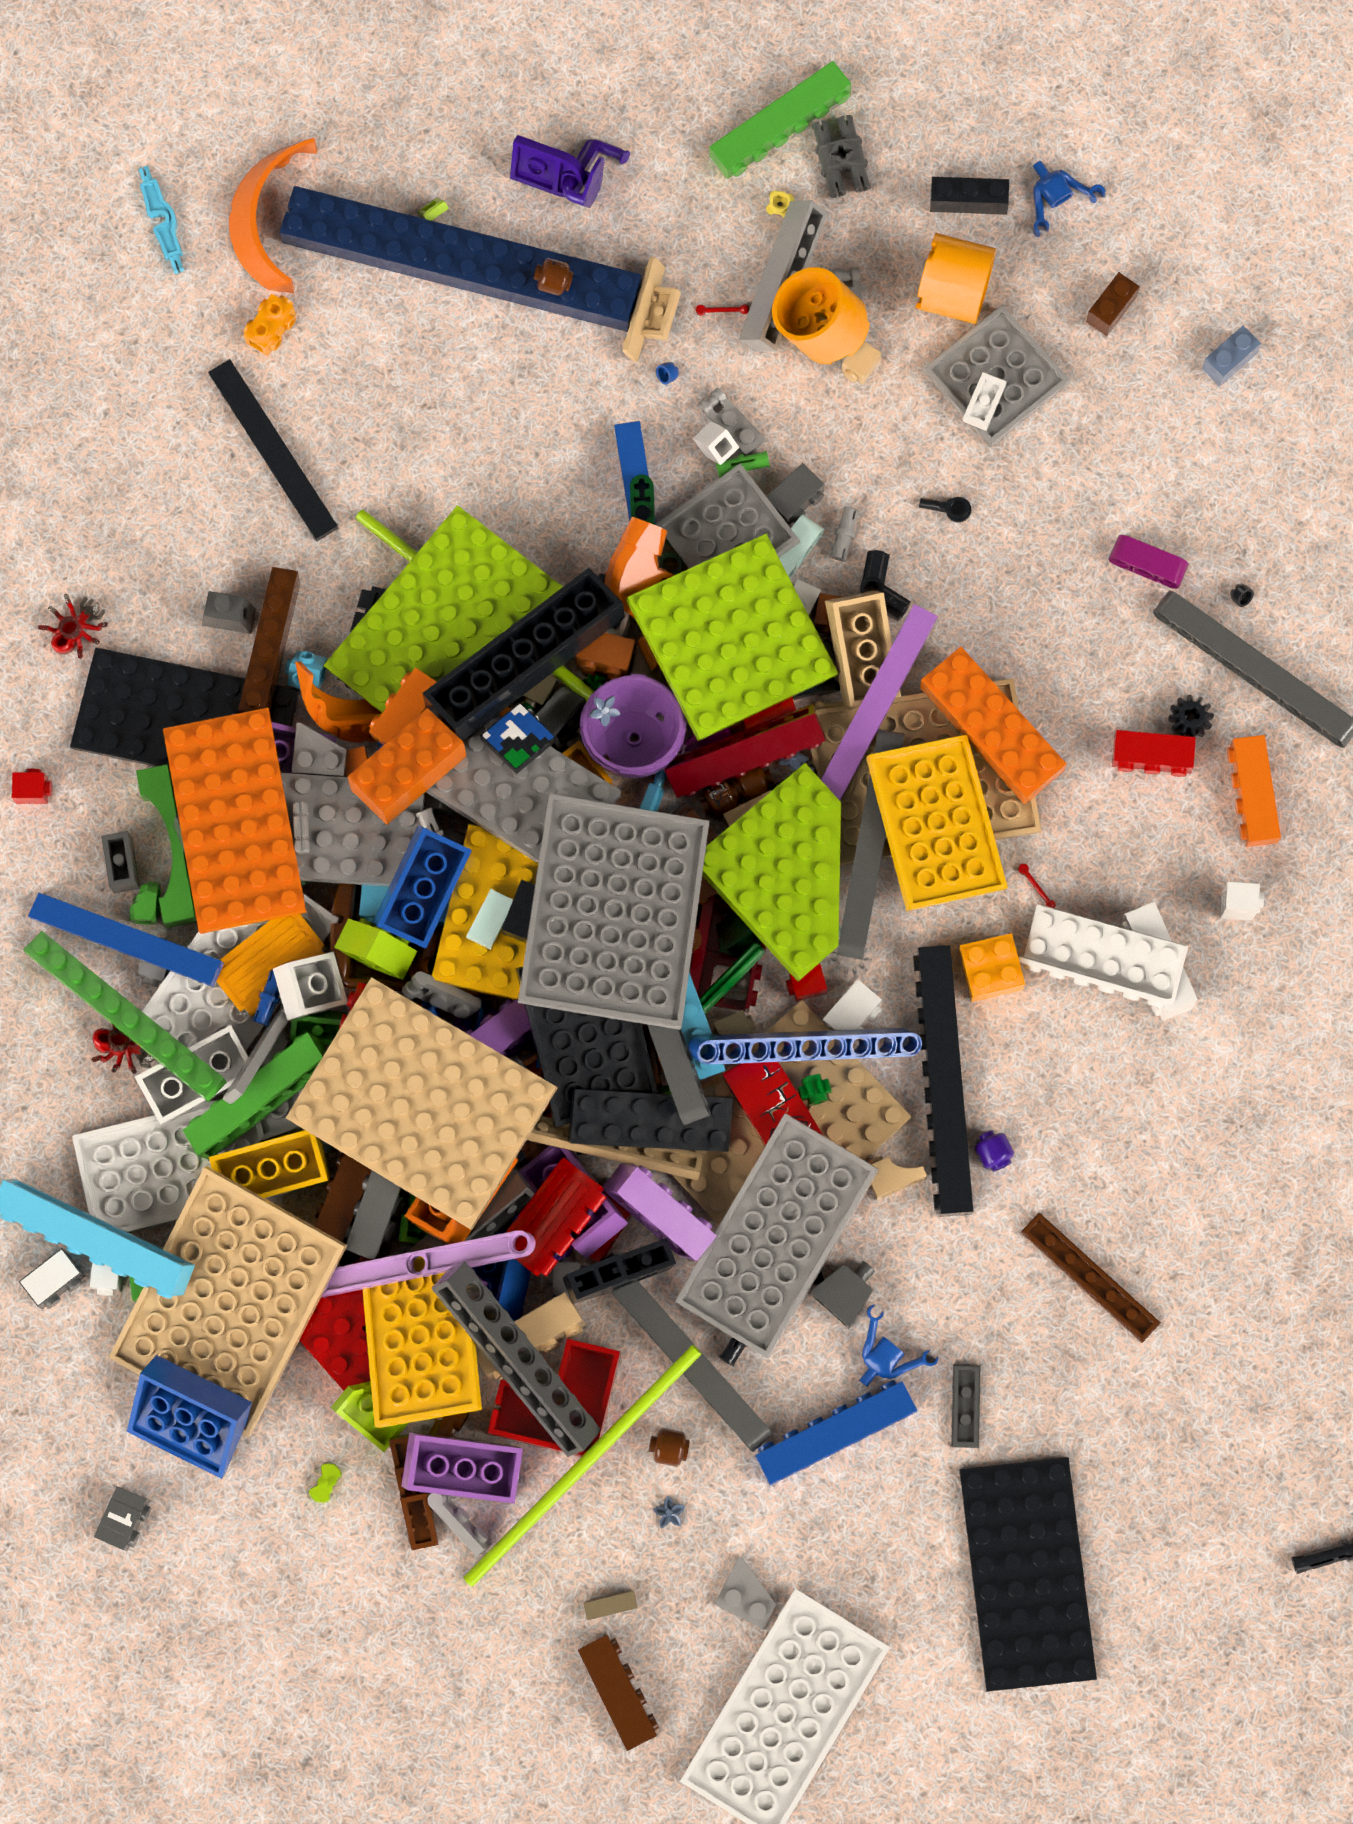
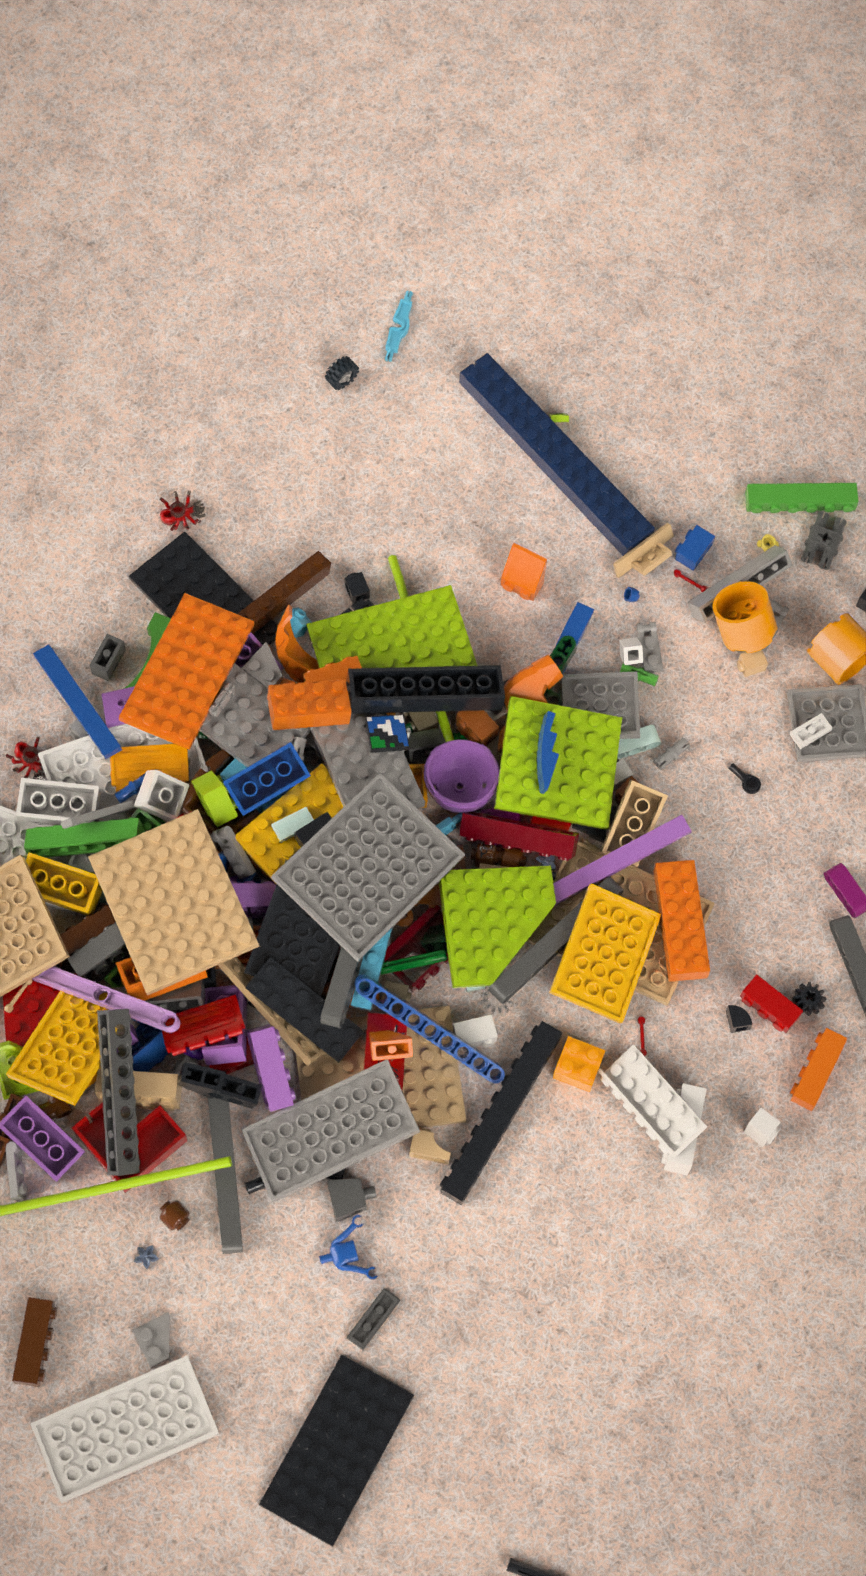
camera: 25 degrees right, 10 degrees down
(31, 787) = (89, 583): red brick -> none
(125, 1016) = (43, 742): bright green plate -> none
(139, 326) = (342, 373): none -> black wheel
(146, 905) = (96, 692): bright green rock -> none
(177, 912) = (113, 705): none -> medium lavender plate
(226, 612) = (272, 557): dark grey torso -> none
(243, 219) = (450, 351): orange windscreen -> none
(272, 320) = (418, 420): light orange brick -> none
(273, 450) = (368, 491): black tile -> none
(317, 1347) = (9, 1007): none -> tan hinge
(346, 579) = (356, 587): none -> black brick
(529, 433) = (524, 572): none -> orange slope
(553, 276) = (600, 494): reddish brown head -> none
(560, 171) = (648, 442): dark purple plate -> none
(604, 710) = (450, 752): sand blue plant -> none
(610, 1605) = (69, 1286): dark tan piece -> none
(701, 265) = (694, 547): none -> blue brick
(718, 644) = (545, 757): none -> blue slope
(776, 1096) = (390, 1045): none -> orange slope
(797, 493) = (658, 711): dark grey brick -> none
(809, 986) = (459, 998): red brick -> none
(814, 1089) = (418, 1061): green gear -> none
(835, 1433) = (281, 1278): blue brick -> none
(875, 575) = (673, 789): black piece -> none
(994, 1150) = (502, 1175): dark purple head -> none
(1090, 1277) = (507, 1295): reddish brown tile -> none
(1129, 794) = (738, 1019): none -> black brick

